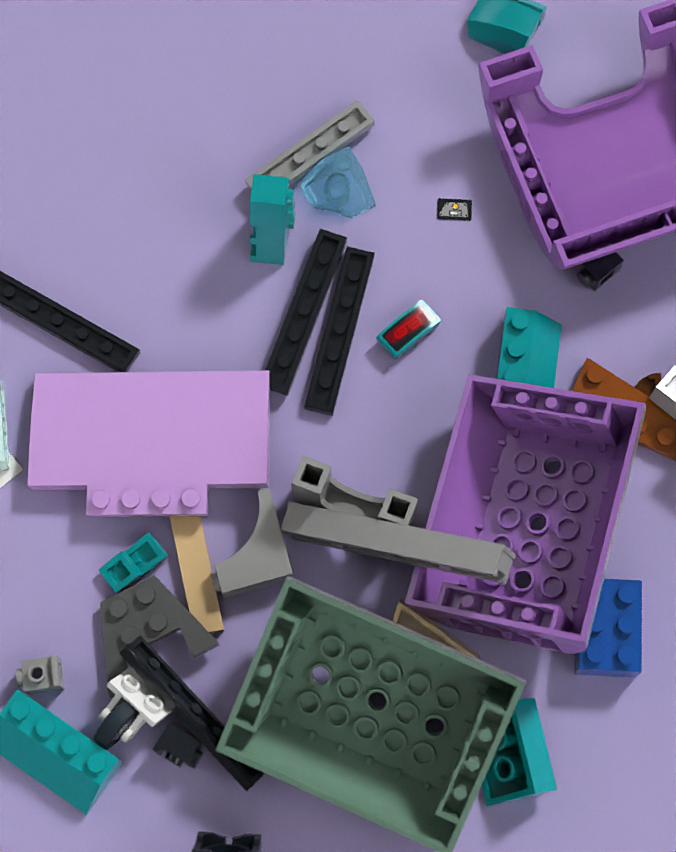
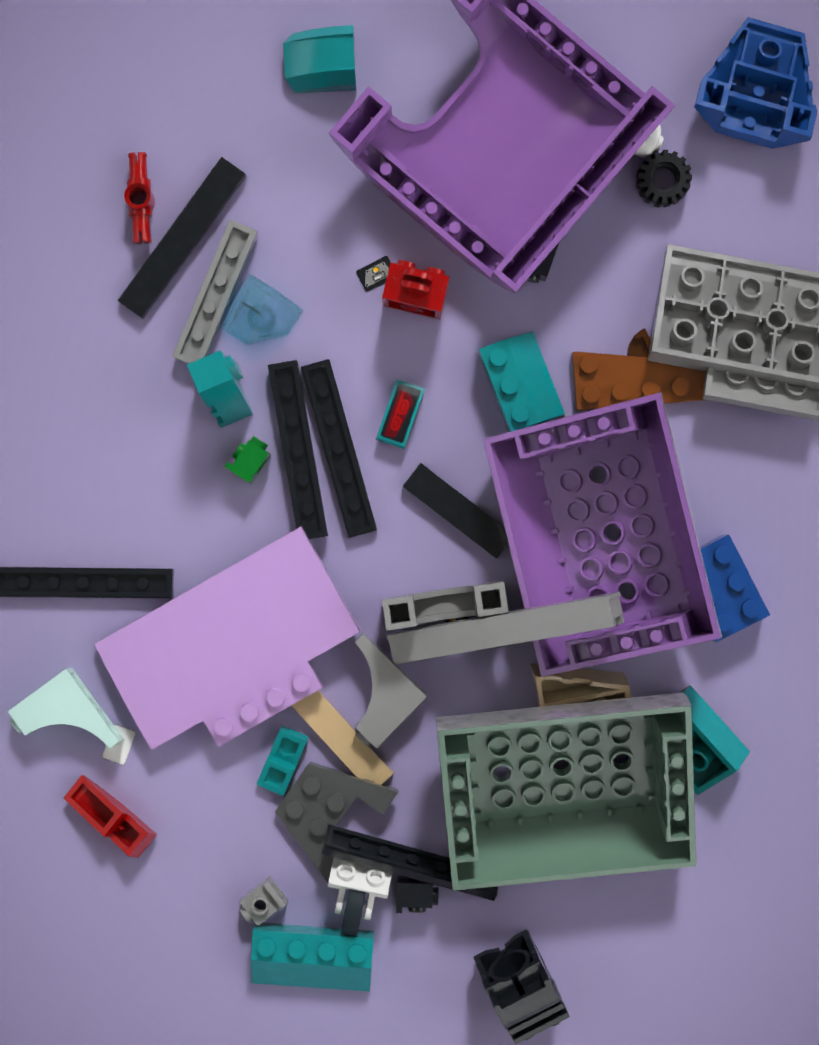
camera: 30 degrees left, 15 degrees up
(258, 296) = (249, 459): none -> green brick
(288, 57) = (139, 183): none -> red pin
(309, 96) = (182, 237): none -> black tile
(411, 435) = (457, 510): none -> black tile
(480, 232) = (415, 289): none -> red brick

